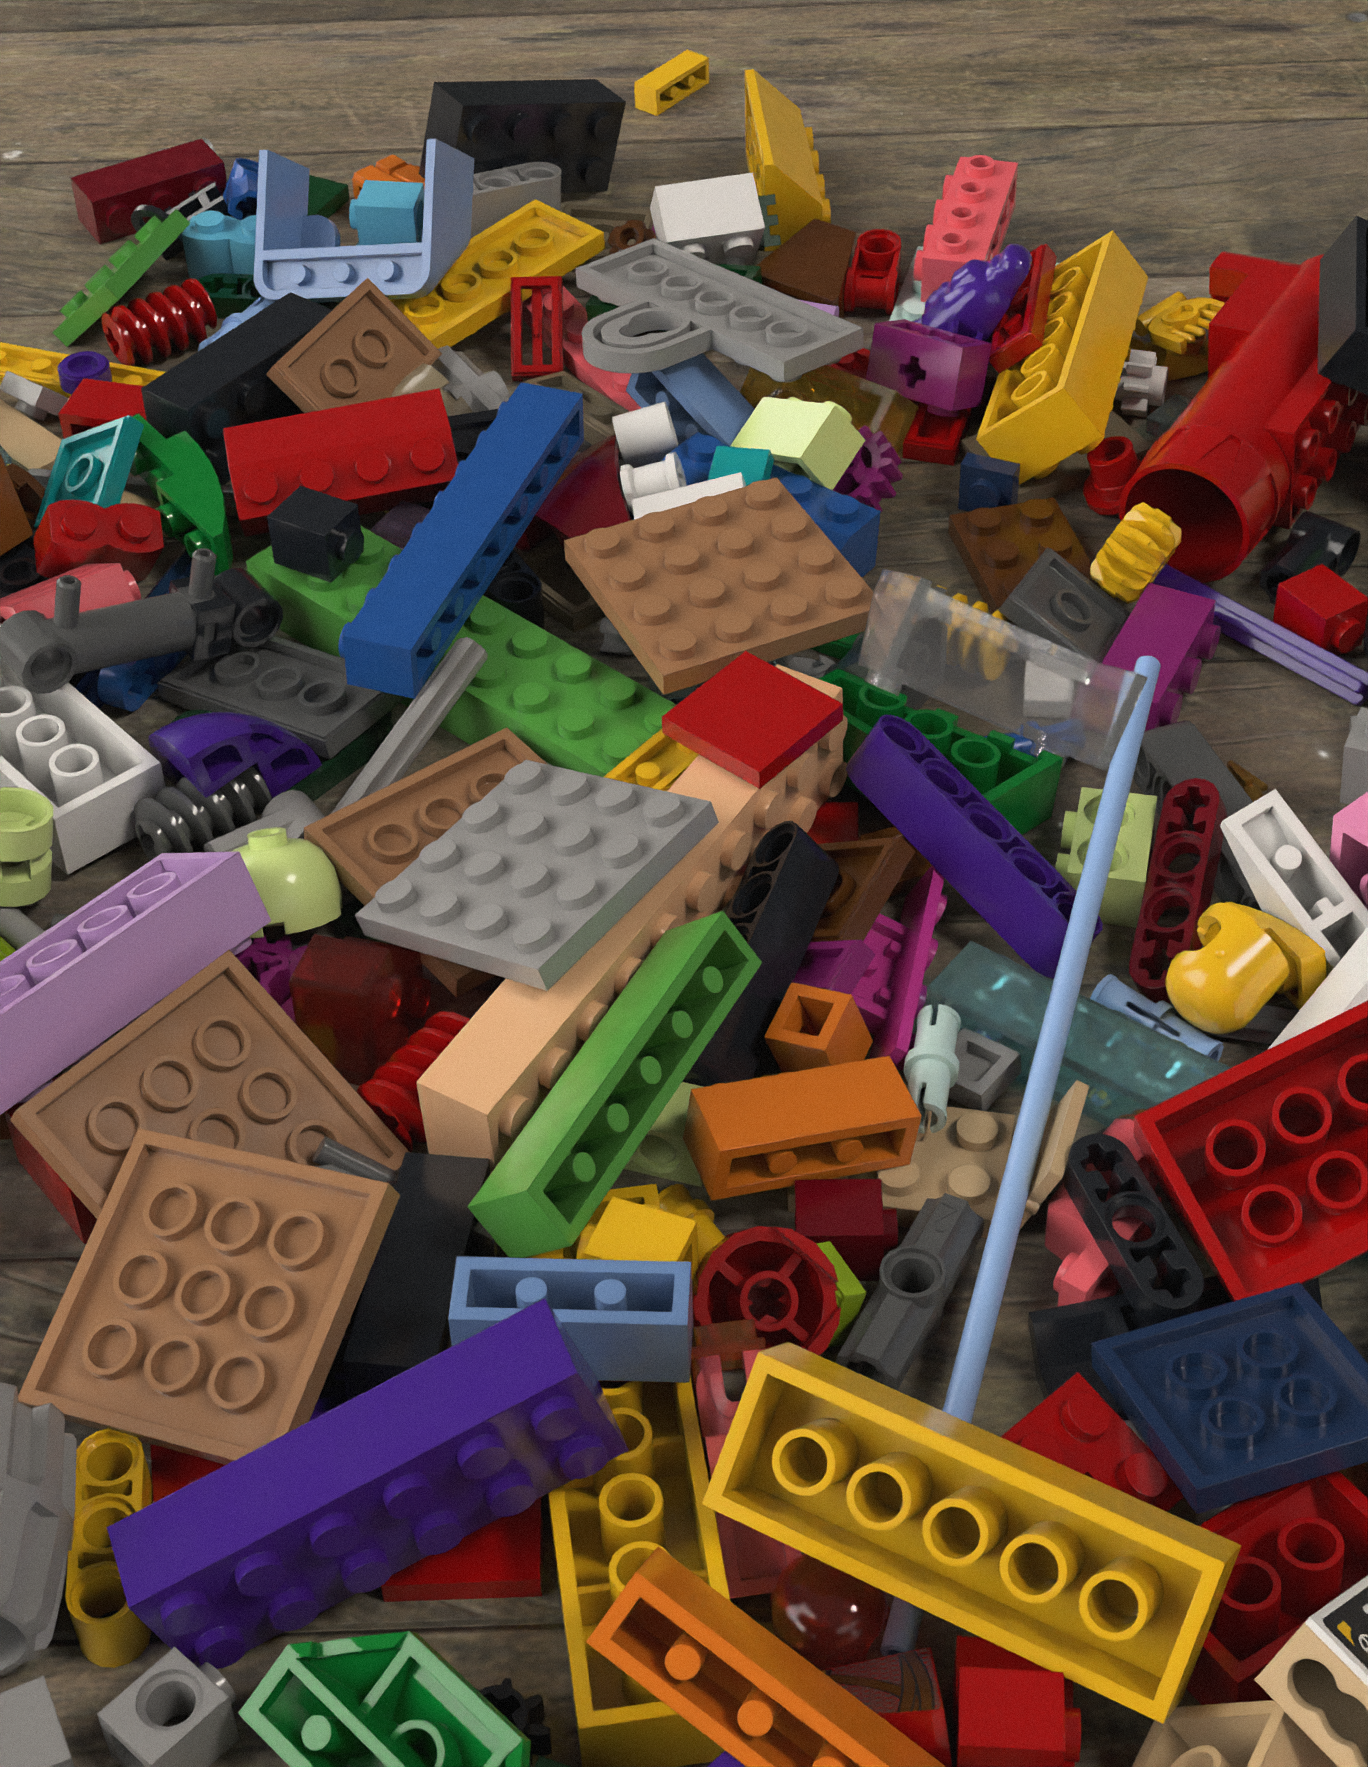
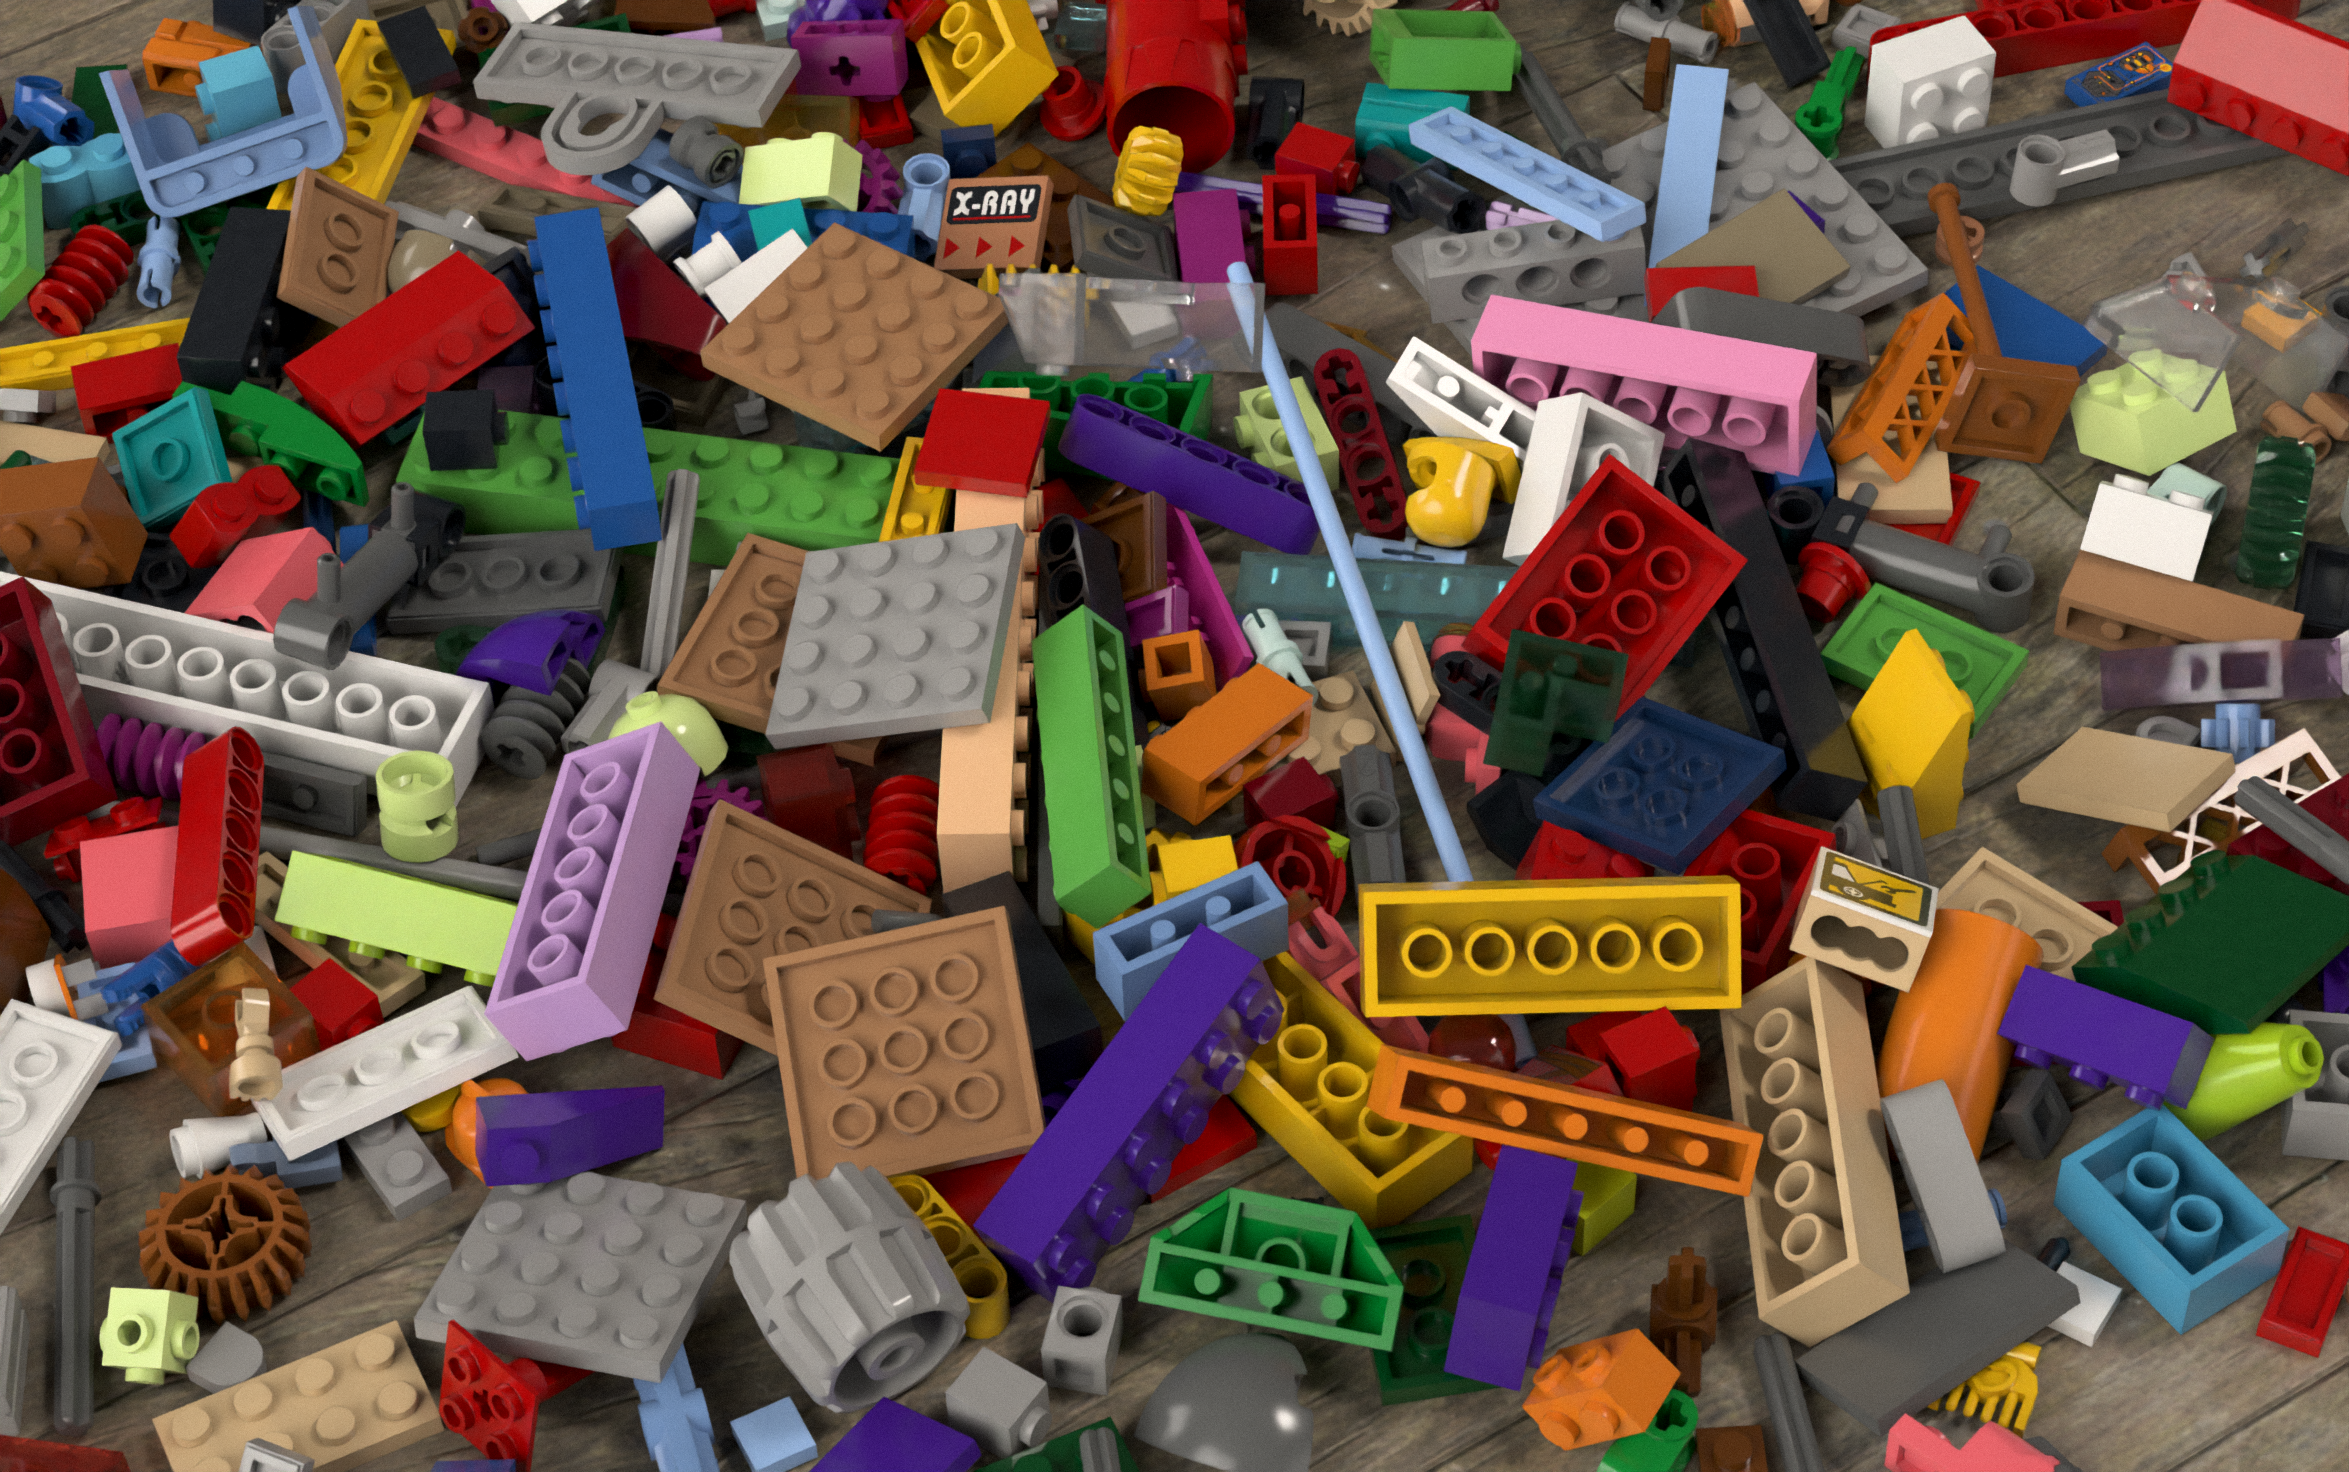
camera: 30 degrees left, 5 degrees up
(80, 366) = (49, 360): dark purple tile -> none
(537, 369) = (437, 160): red tile -> none
(557, 237) = (419, 52): none -> black tile
(724, 388) = (701, 148): none -> dark grey wheel
(915, 513) = (924, 197): none -> light blue piece
(965, 548) = (993, 223): none -> nougat tile
(1173, 1220) = (1548, 689): none -> clear green brick
(1244, 663) = (1290, 234): none -> red brick

